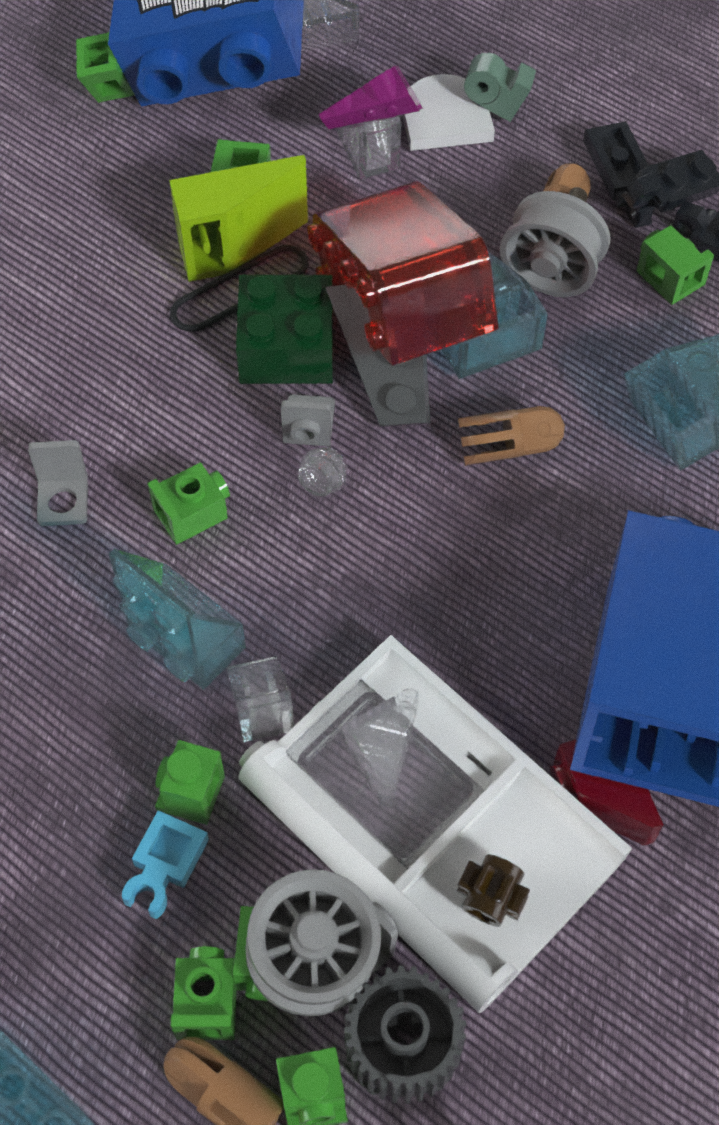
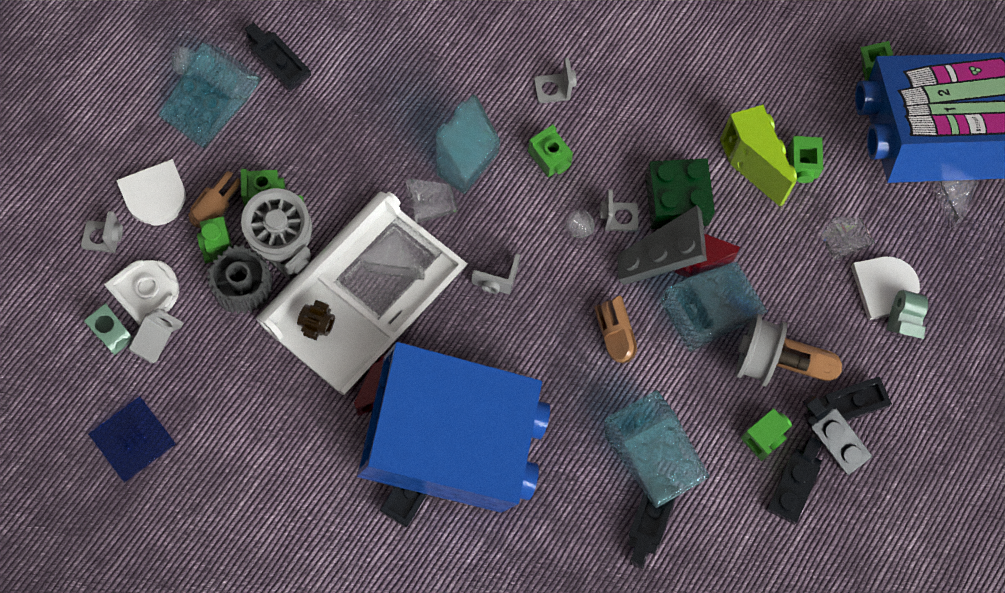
camera: 80 degrees right, 10 degrees up
(165, 856) = (334, 164): medium azure plate -> none
(173, 311) = (723, 158): black piece -> none
(189, 782) = (375, 164): bright green brick -> none
(377, 99) = (871, 232): magenta slope -> none
(413, 269) = (712, 246): clear red windscreen -> none
(424, 582) = (496, 284): none -> light grey bracket

